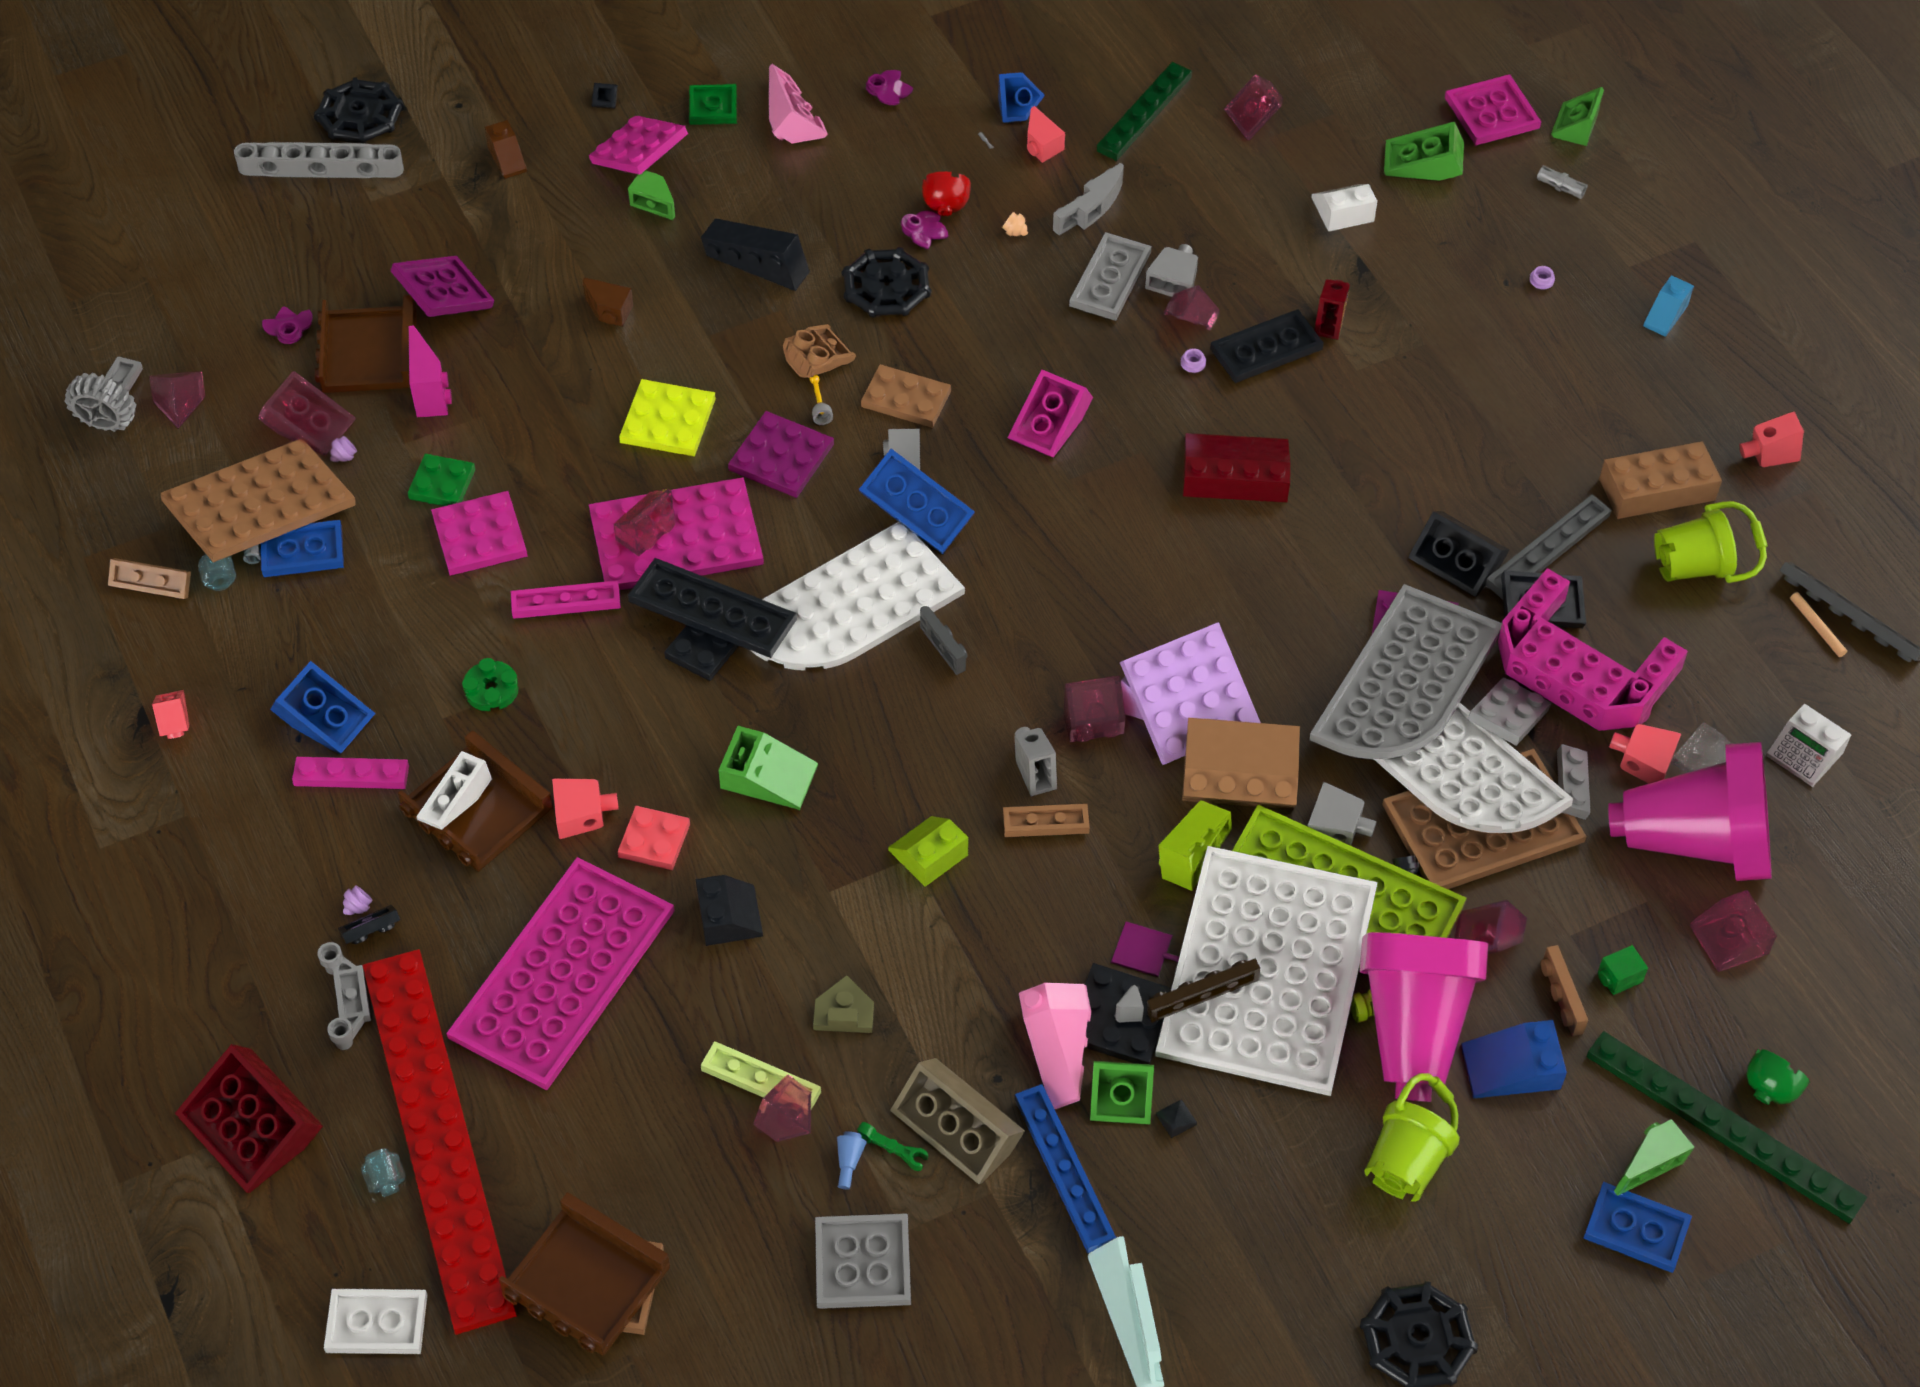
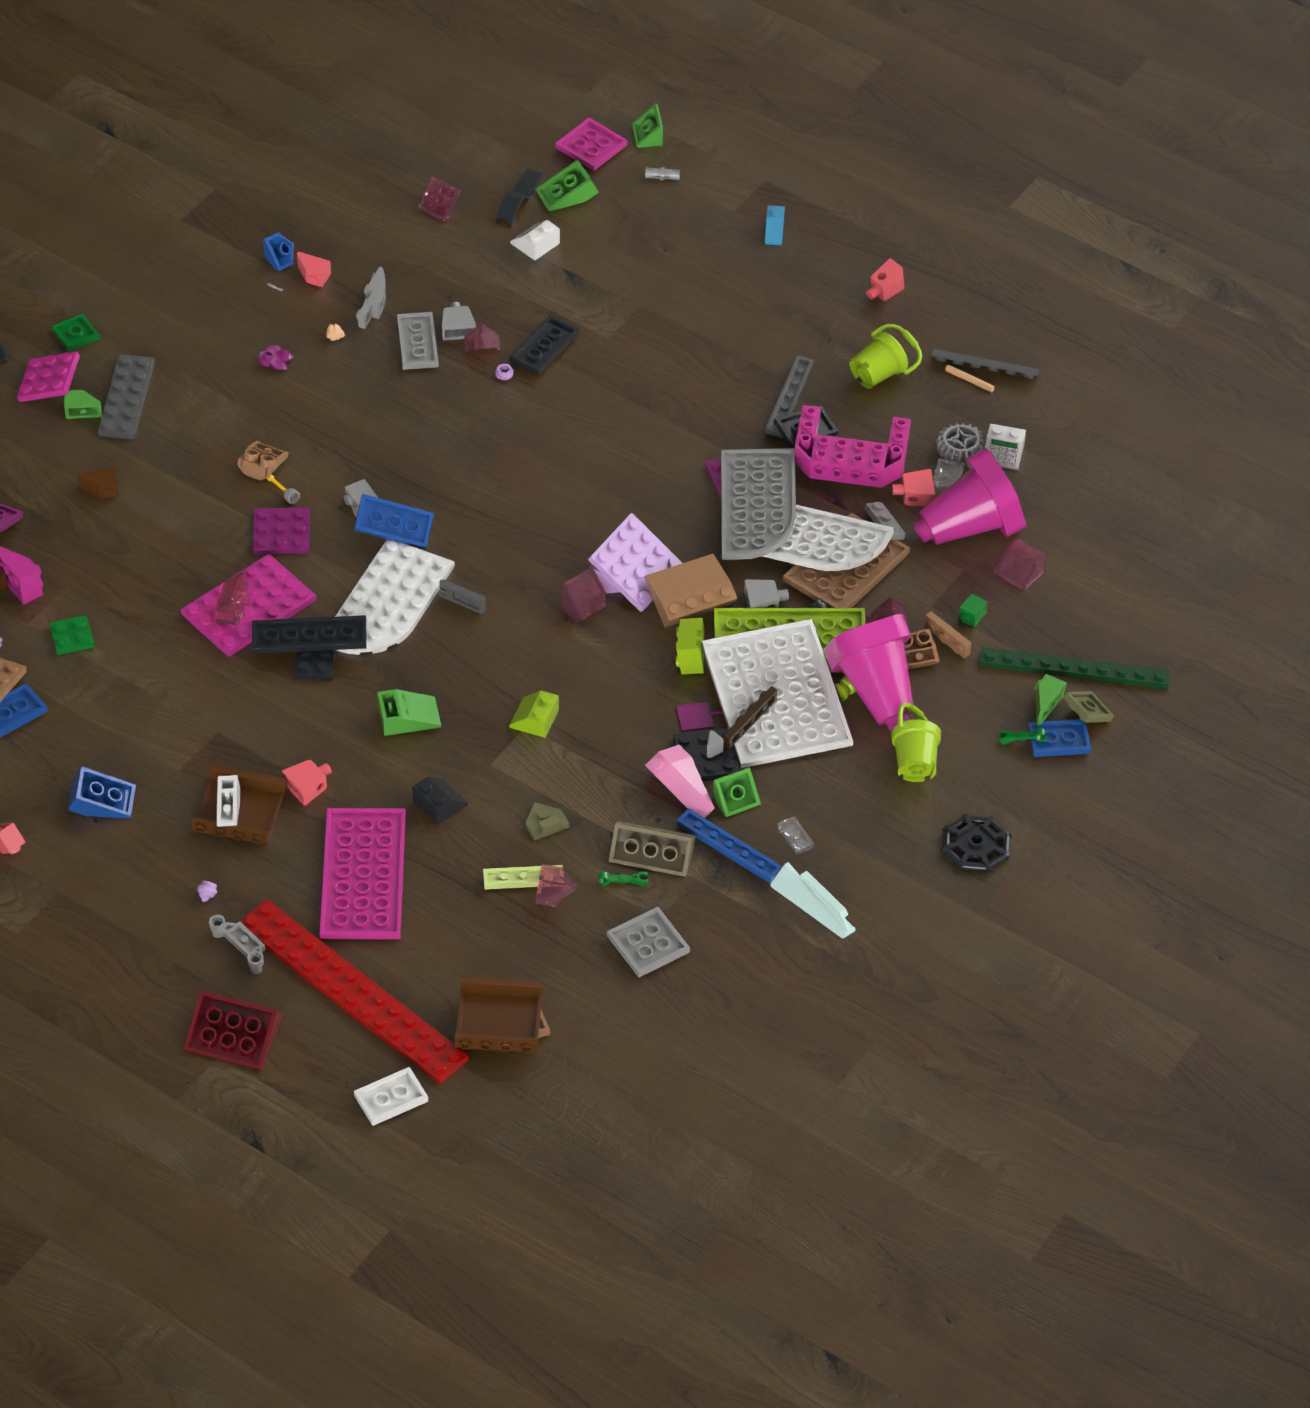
camera: 30 degrees left, 5 degrees down
(350, 772) = (145, 824): dark pink plate -> none
(359, 929) = (229, 895): black plate -> none
(383, 1172) = (337, 1021): clear light blue head -> none
(479, 533) = (120, 655): dark pink plate -> none
(487, 672) = (196, 729): green plate -> none
(565, 599) = (208, 670): dark pink plate -> none
(654, 837) = (363, 779): coral plate -> none
(667, 417) = (191, 538): neon yellow plate -> none
(721, 198) = (126, 396): none -> dark grey plate
(758, 251) = (178, 412): black wedge -> none
(789, 111) = (134, 317): bright pink wedge -> none
(849, 1152) = (601, 889): medium blue cone -> none
(886, 299) = (283, 409): black plate -> none
(888, 87) = (186, 277): magenta plate -> none
(906, 396) = (336, 464): medium nougat plate -> none
(946, 193) = (277, 328): red cylinder -> none
(1034, 747) = (567, 638): light grey torso -> none
(1046, 820) = (593, 670): medium nougat plate -> none
(1050, 413) = (438, 438): dark pink slope -> none
(1144, 111) = (367, 228): dark green plate -> none
(1165, 1197) = (795, 835): none -> clear plate
(1176, 1118) = (773, 795): black slope -> none
(1236, 467) = (573, 425): dark red slope -> none
(1332, 299) = (572, 299): dark red torso -> none
(1368, 136) = (513, 199): none -> black piece
(1457, 552) = (739, 421): black slope -> none
(1506, 993) = (921, 650): none -> medium nougat slope
(1509, 711) = (825, 497): light grey plate -> none
(1515, 1060) = (943, 682): blue slope -> none
(1542, 277) = (687, 237): lavender plate -> none
(1605, 1209) = (1009, 736): none -> green piece
(1660, 480) = (831, 331): medium nougat brick -> none
(1707, 1200) = (1088, 706): none -> olive plate
(1732, 708) = (959, 442): none -> light grey gear
(1774, 1078) = (1088, 630): green cylinder -> none

